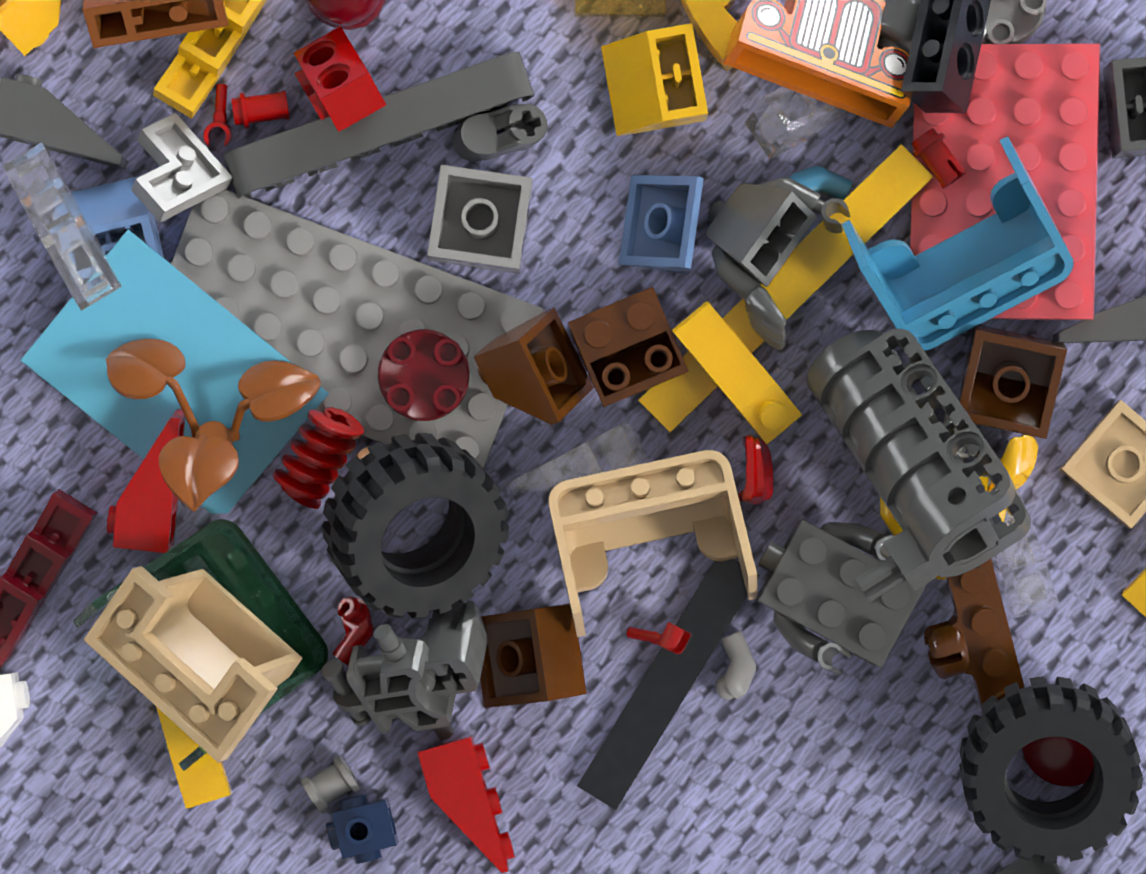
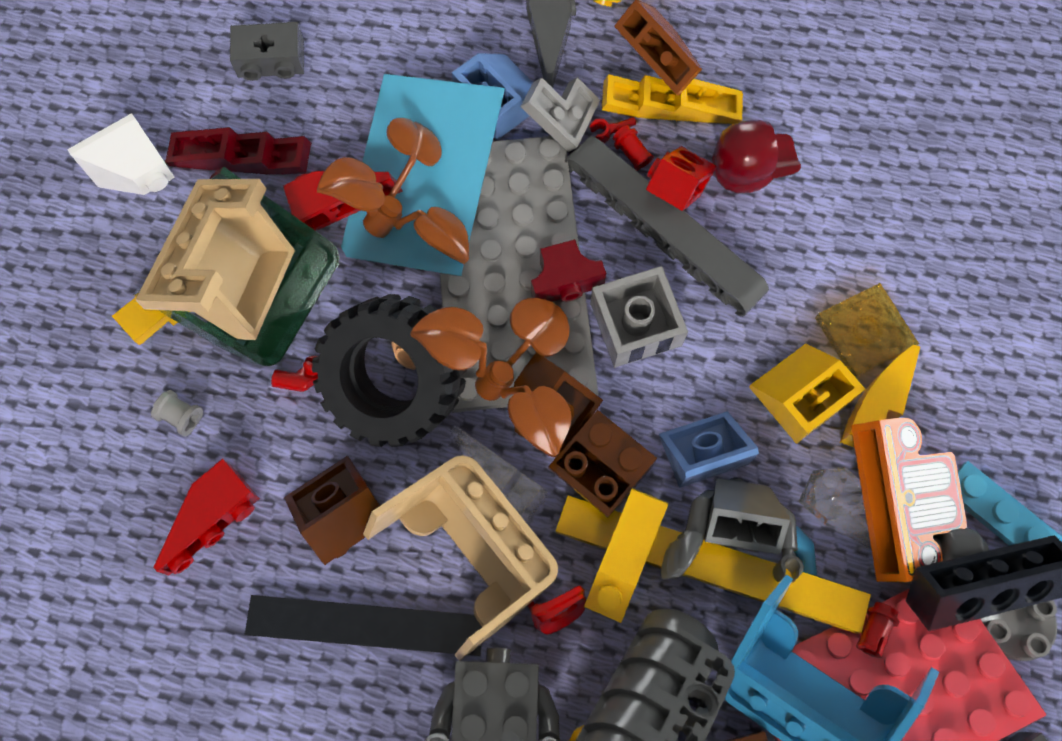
camera: 65 degrees right, 15 degrees down
(62, 226) = (481, 46): clear slope -> none
(318, 456) = (422, 282): red piece -> none
(375, 816) = (150, 449): dark blue brick -> none
(392, 275) = (566, 273): none -> dark red brick
(413, 676) = (277, 433): dark grey piece -> none
(423, 375) = (497, 330): dark red dish -> none
(442, 444) = (454, 341): none -> dark orange plant
(478, 137) = (705, 304): dark grey piece -> none
(672, 637) = (397, 609): red hand -> none
(741, 669) = (399, 679): light grey arm -> none

